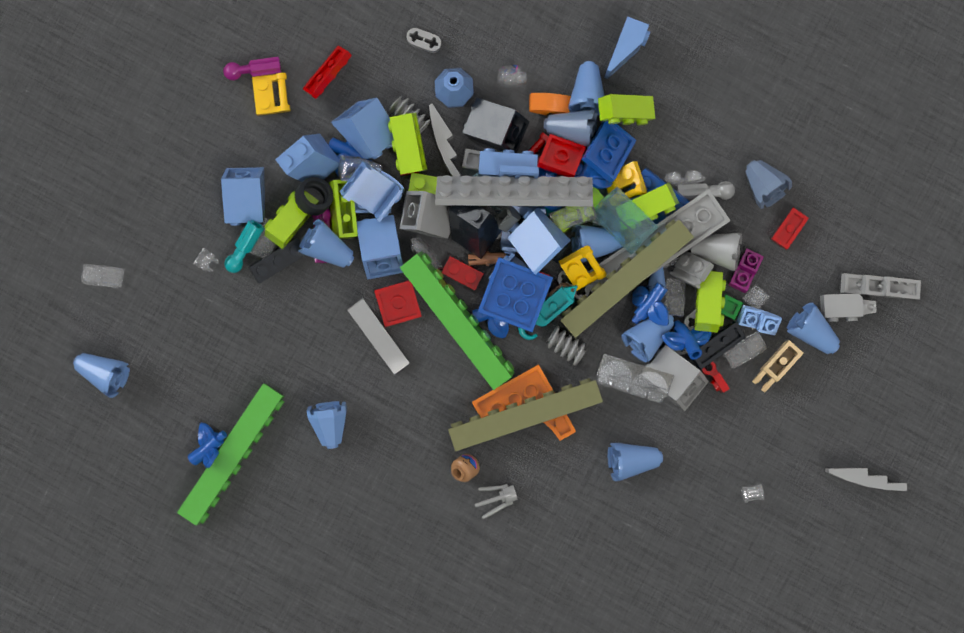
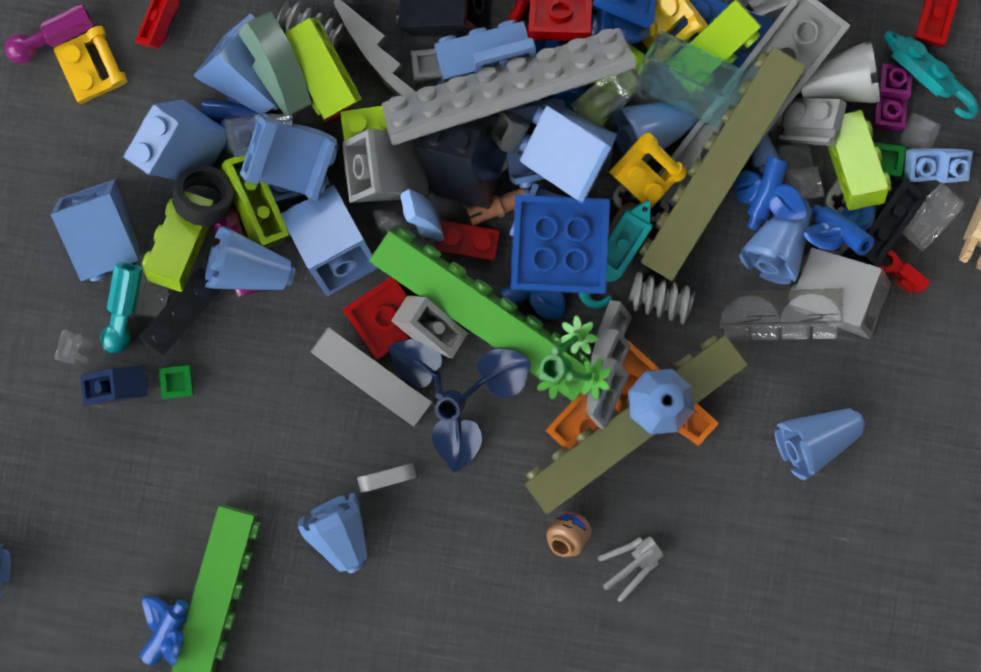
camera: 15 degrees left, 0 degrees up
(223, 291) = (114, 385): none -> dark blue slope
(261, 301) = (176, 382): none -> green plate
(368, 399) = (386, 477): none -> light grey beam
(383, 133) = (276, 63): none -> sand green slope
(415, 388) = (457, 439): none -> dark blue plant
(422, 317) = (429, 325): none -> light grey slope
(440, 250) = (423, 214): none -> light blue slope
(488, 367) = (557, 368): none -> bright green plant
(518, 378) = (612, 349): none -> light grey slope
(534, 410) = (647, 406): none -> medium blue cone
(773, 262) = (930, 71): none -> teal plate

